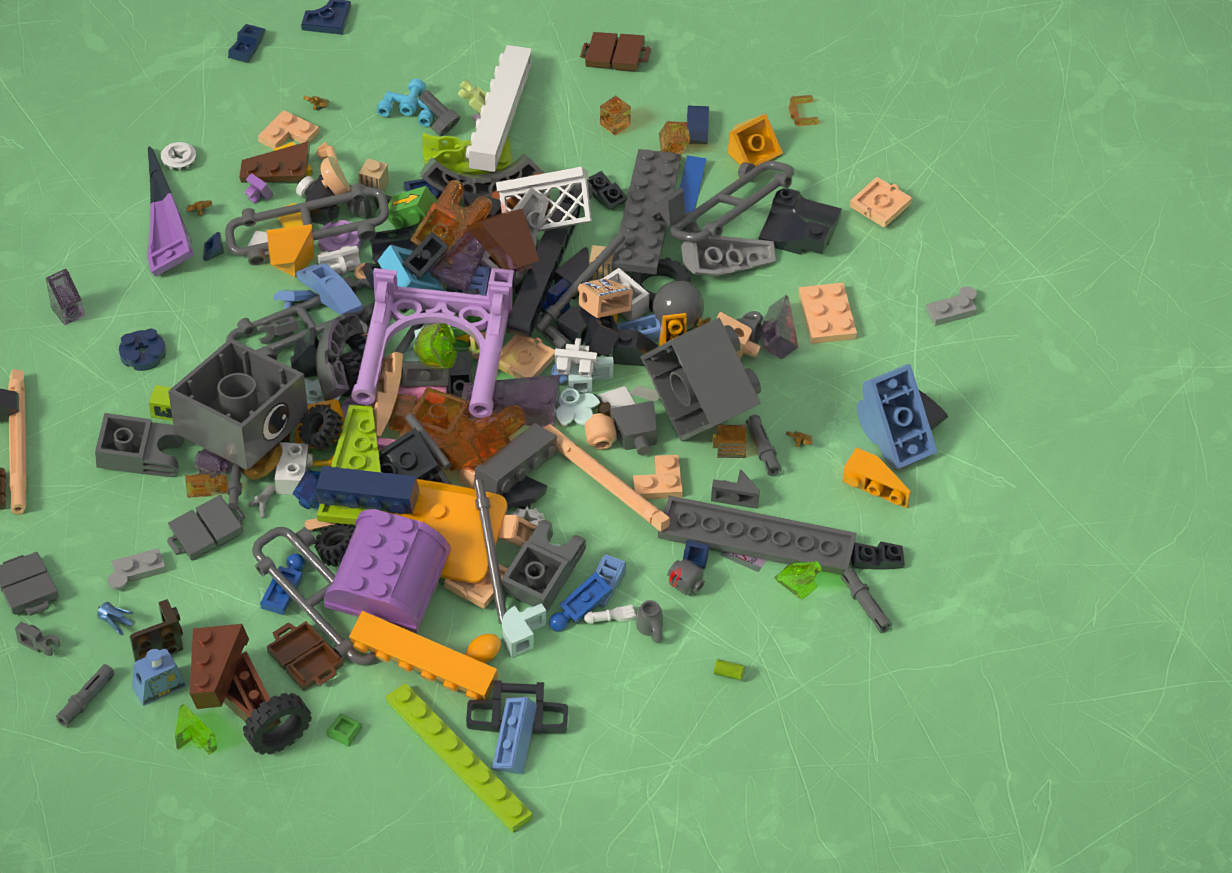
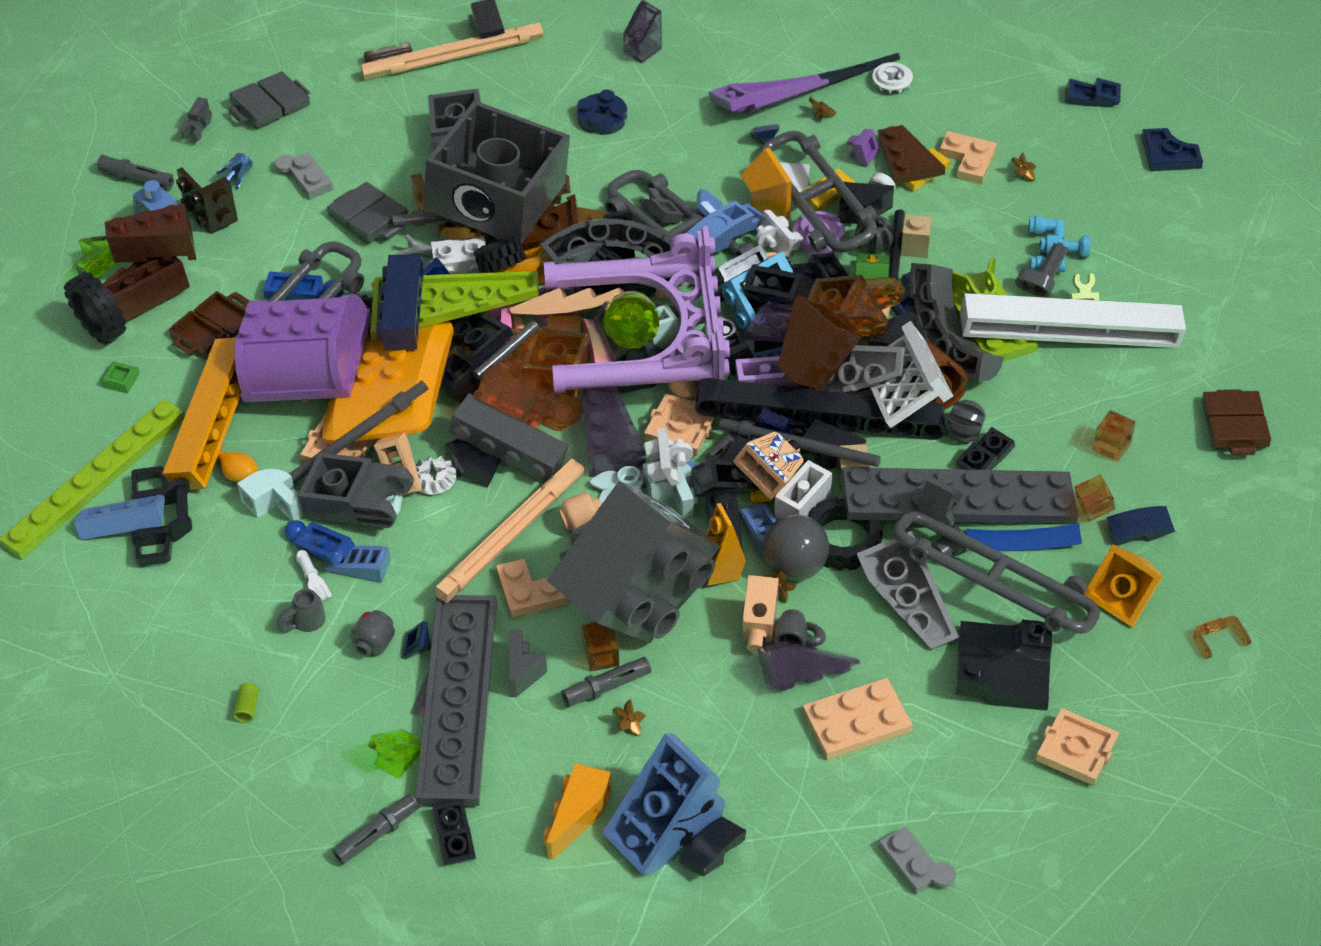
camera: 80 degrees right, 0 degrees up
(332, 173) = (894, 192): light nougat piece -> none

